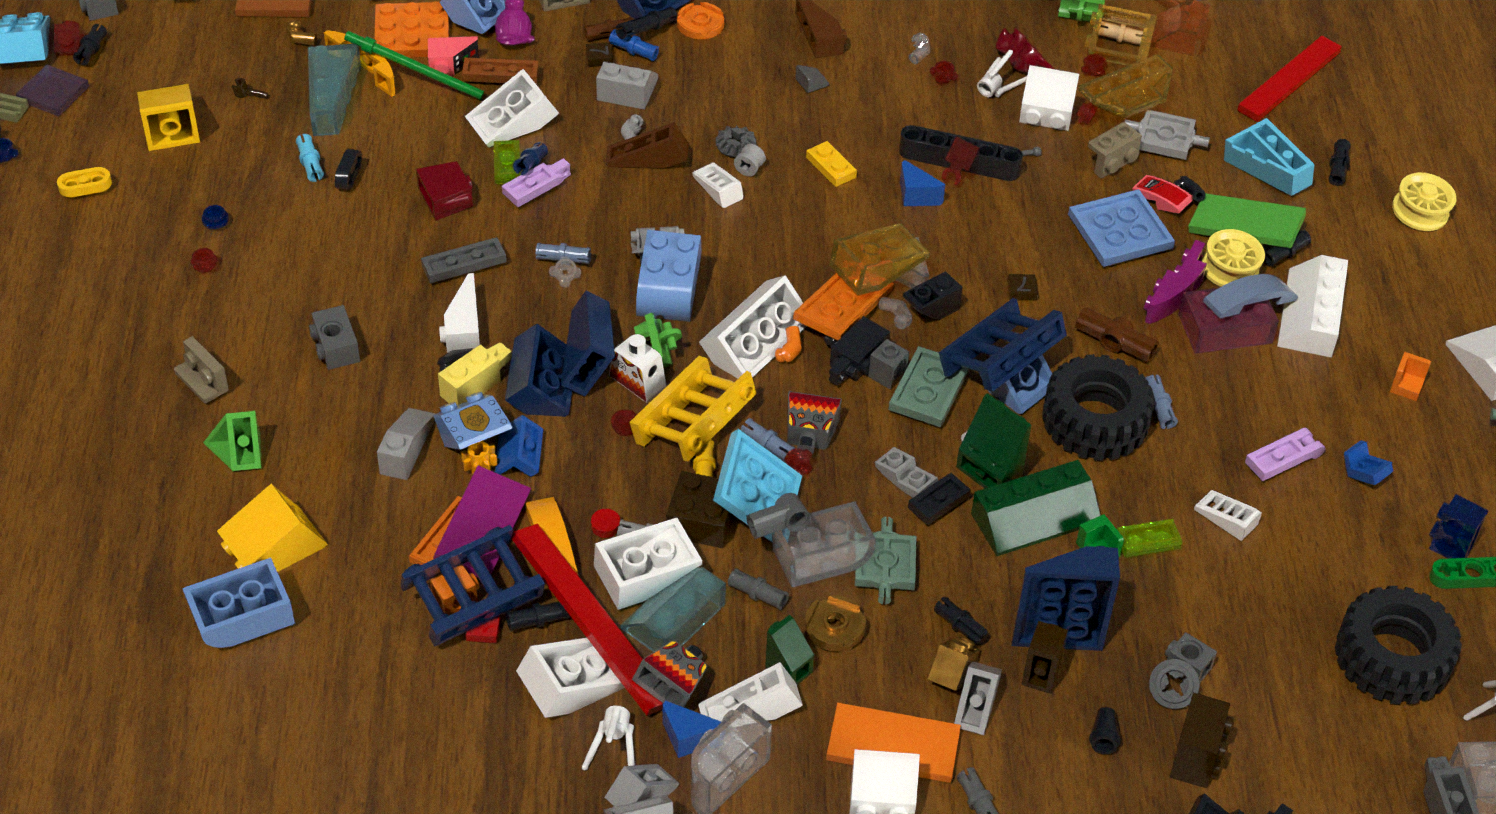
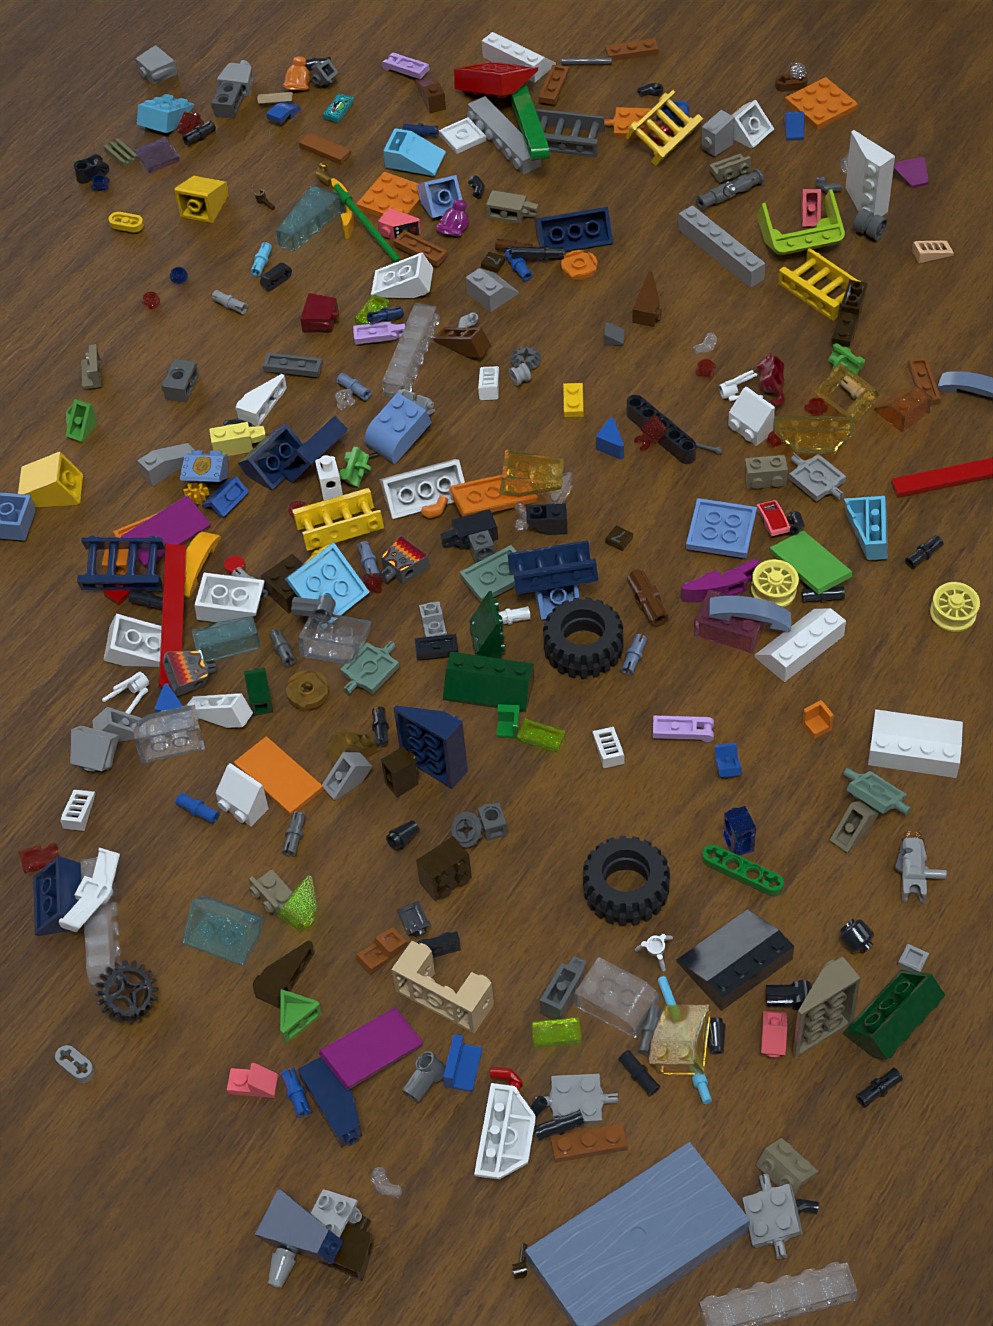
camera: 40 degrees right, 5 degrees up
(312, 221) = (229, 301): none -> light grey pin
(597, 186) = (410, 349): none -> clear brick

